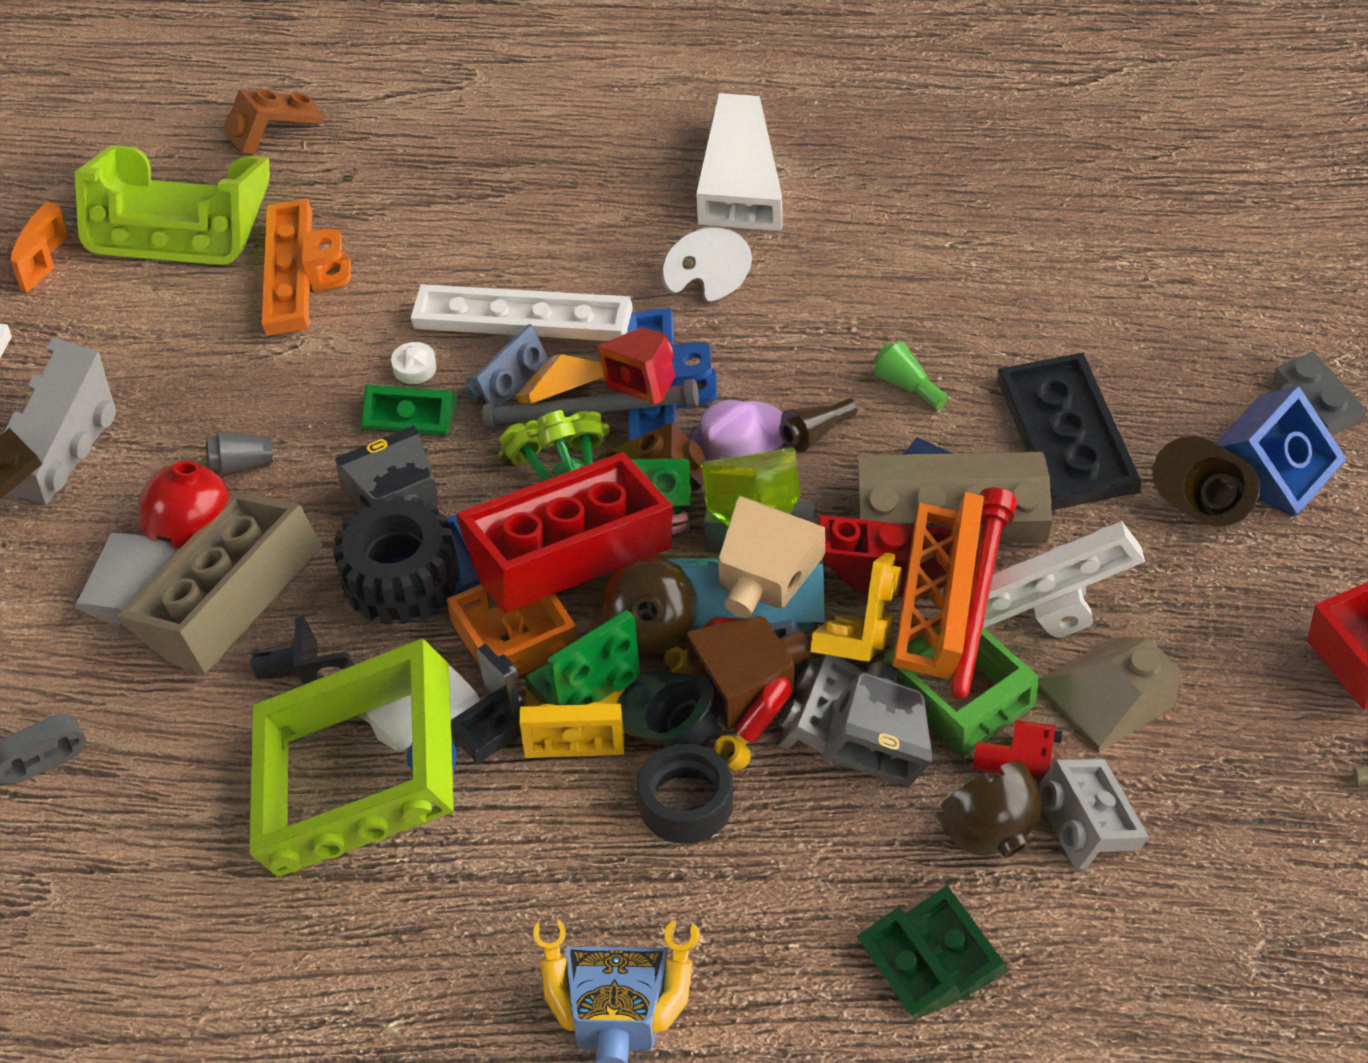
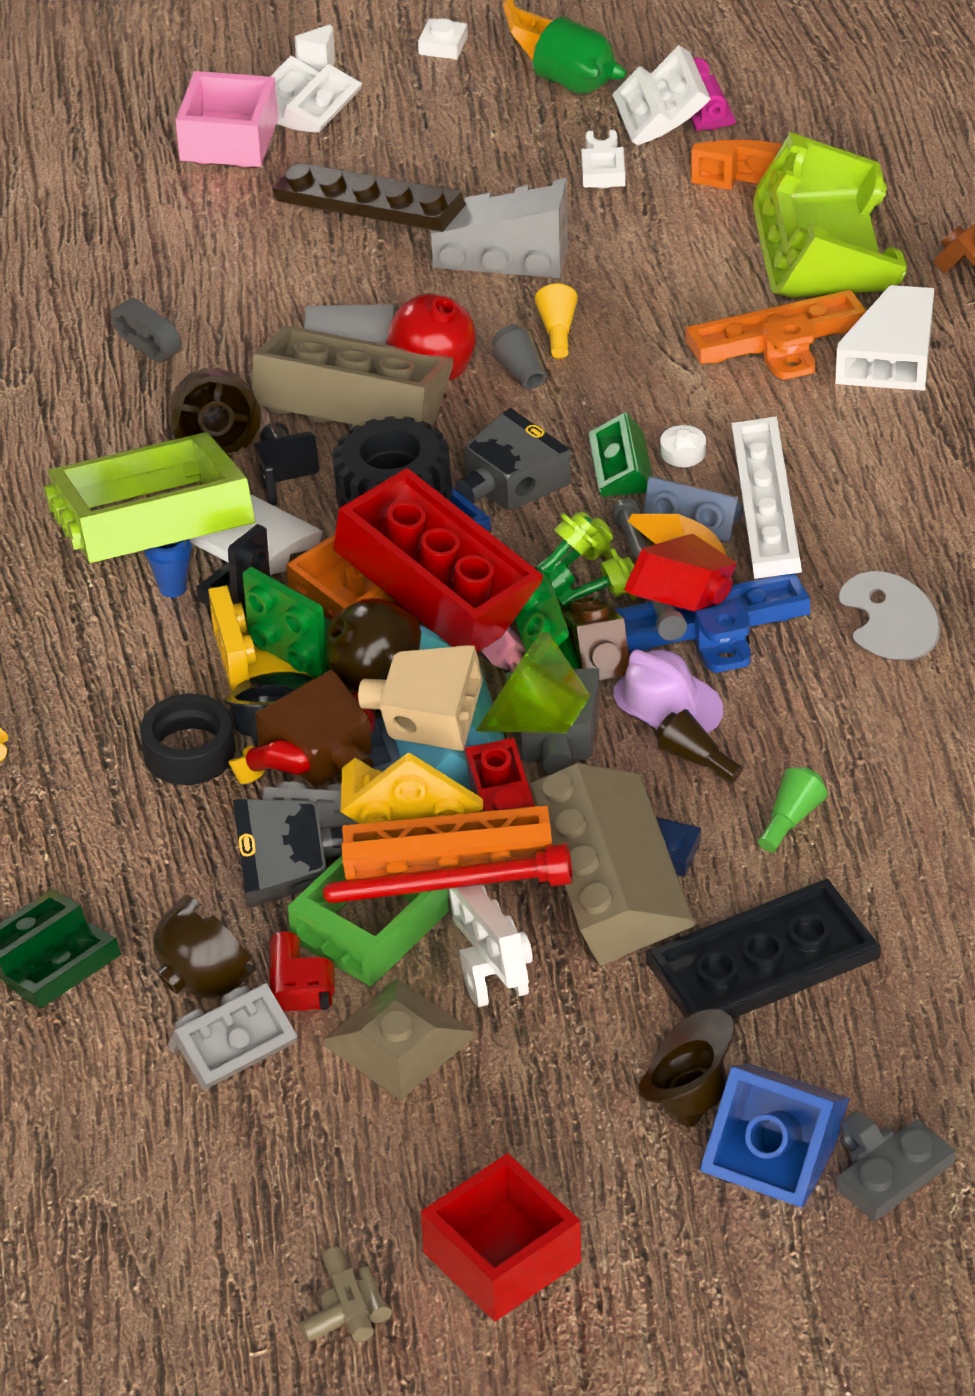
camera: 75 degrees right, 5 degrees down
(180, 413) = (556, 307): none -> yellow cone
(215, 699) = (216, 404): none -> dark brown cylinder
(349, 192) = (889, 341): none -> white slope

